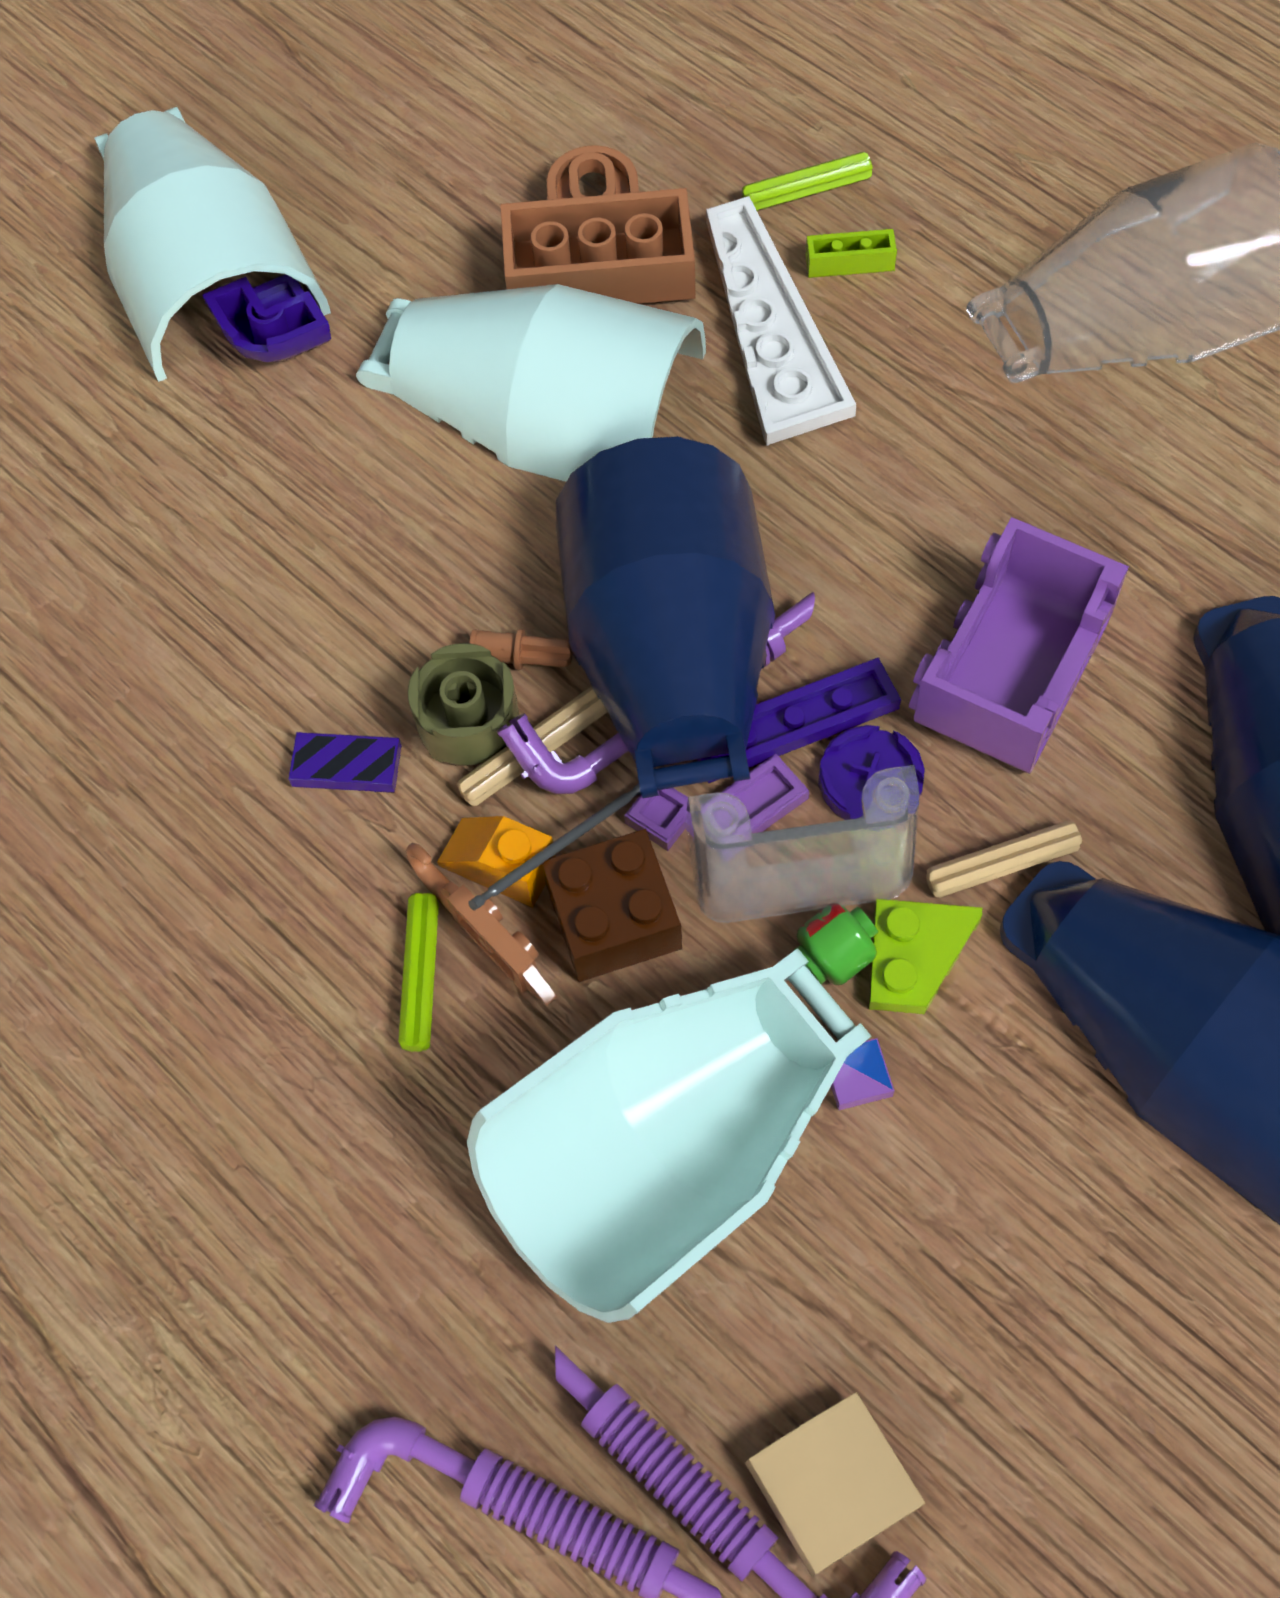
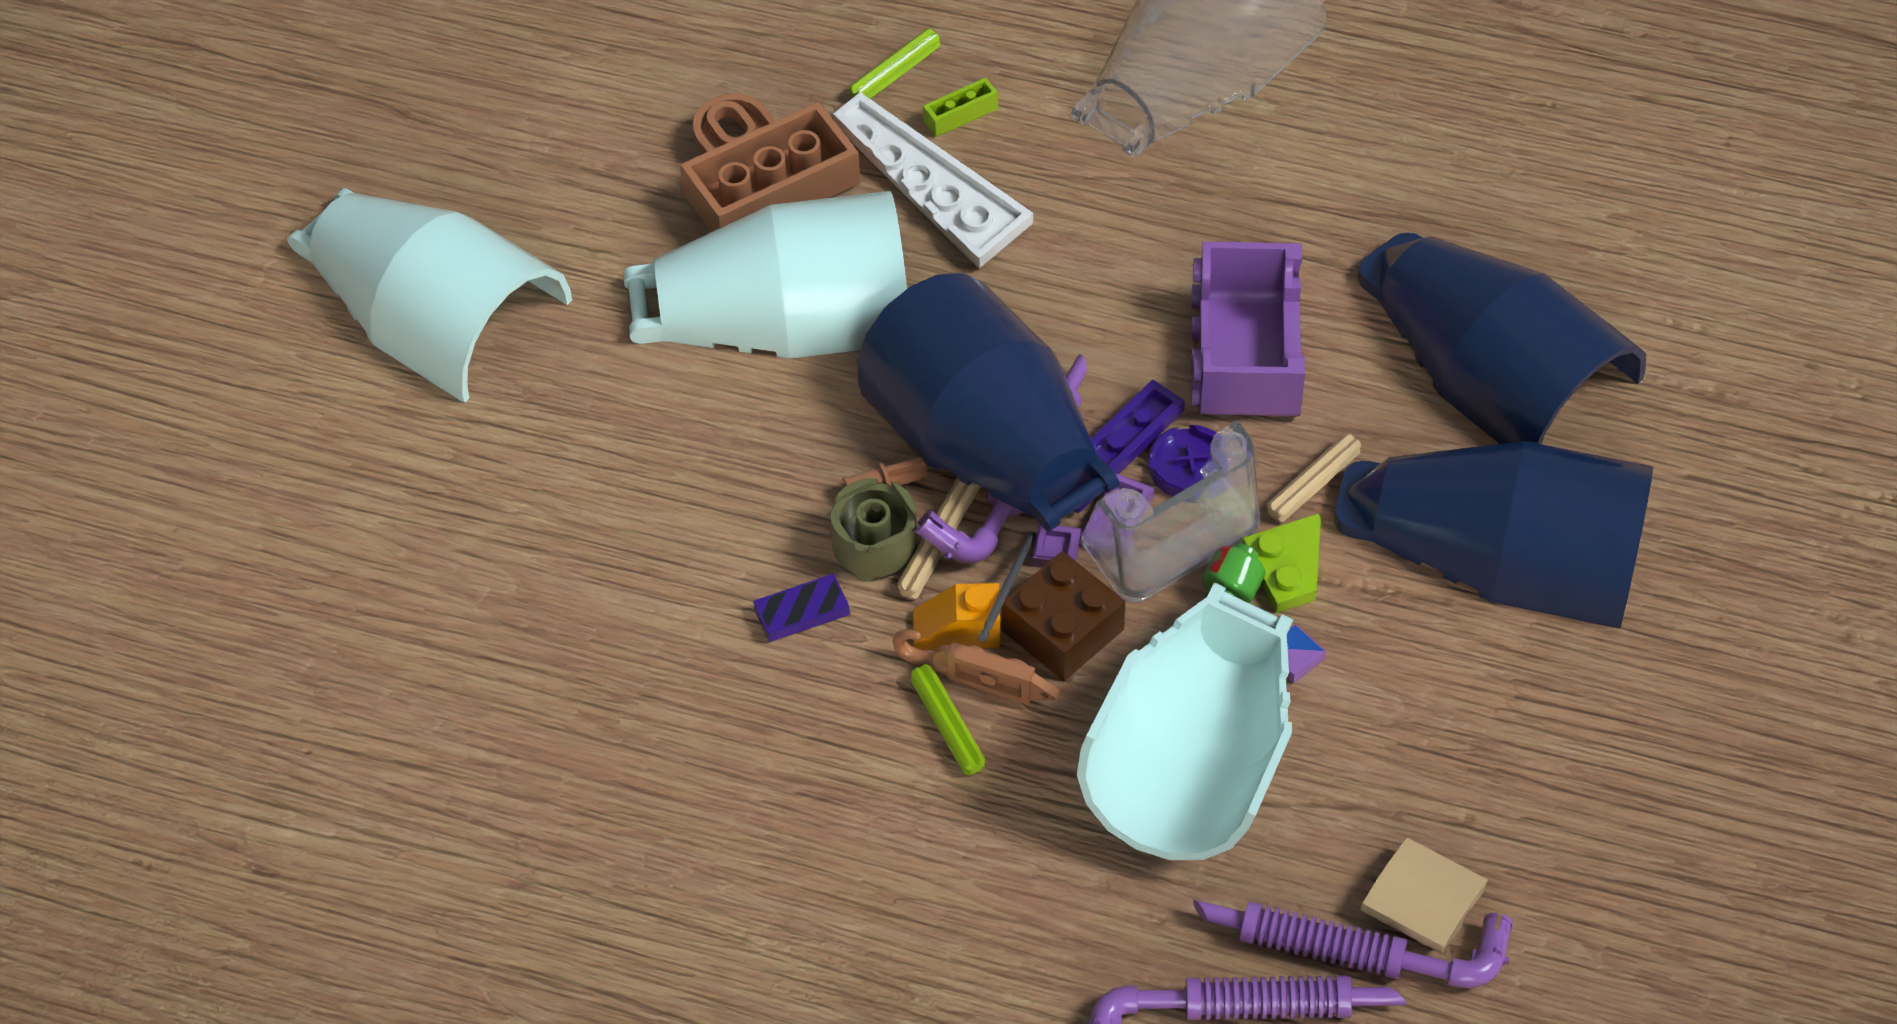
camera: 30 degrees left, 10 degrees down
(270, 319) = (541, 317): dark purple brick -> none

